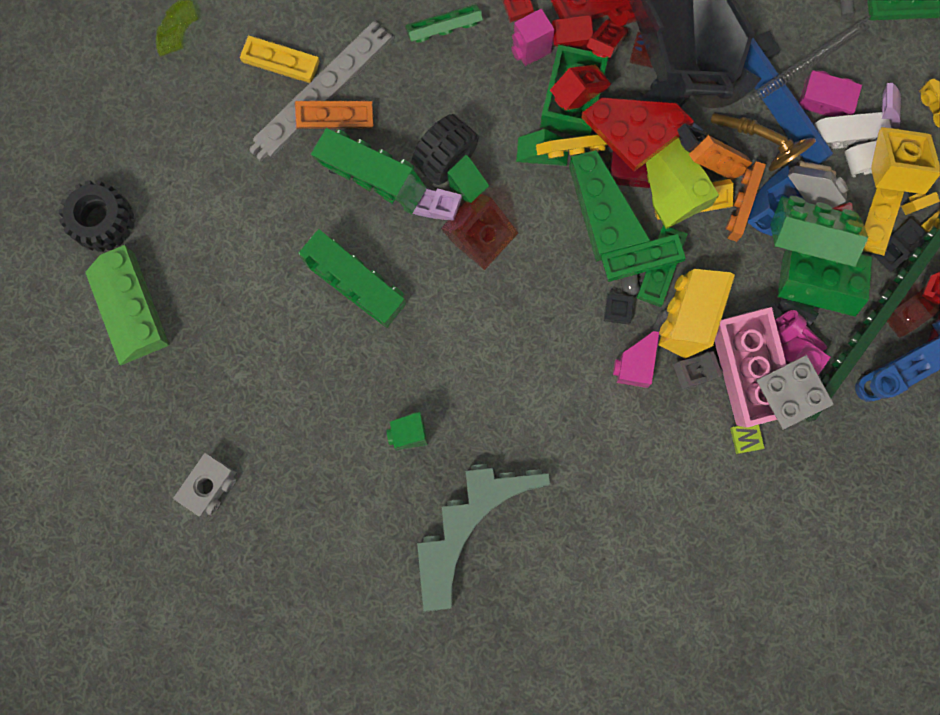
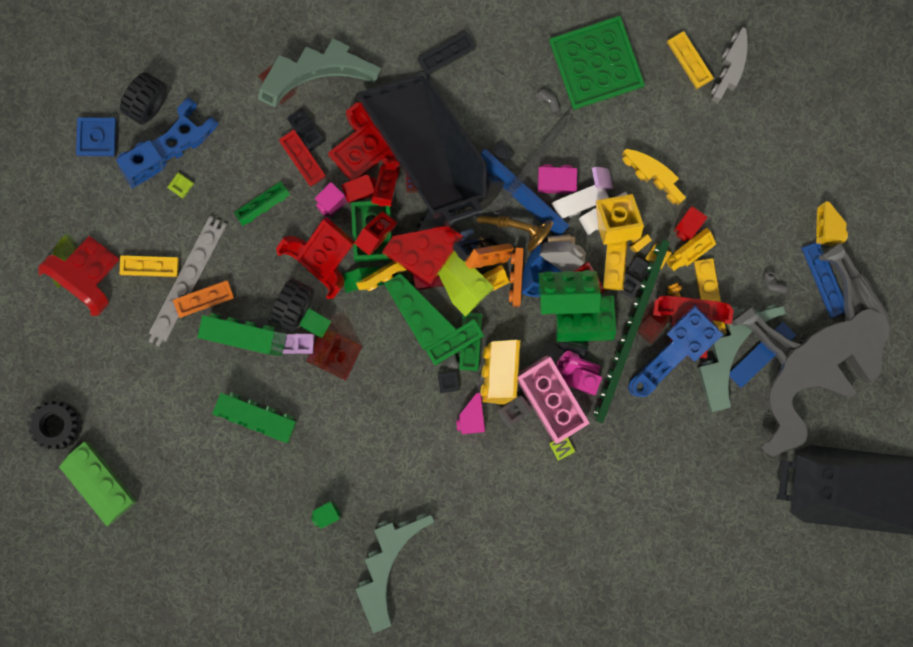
camera: 20 degrees left, 5 degrees up
(191, 492) = (189, 602): light grey brick -> none
(194, 41) = (83, 273): none -> red piece
(501, 100) = (320, 254): none -> red piece
(794, 392) = (581, 411): light grey hinge -> none

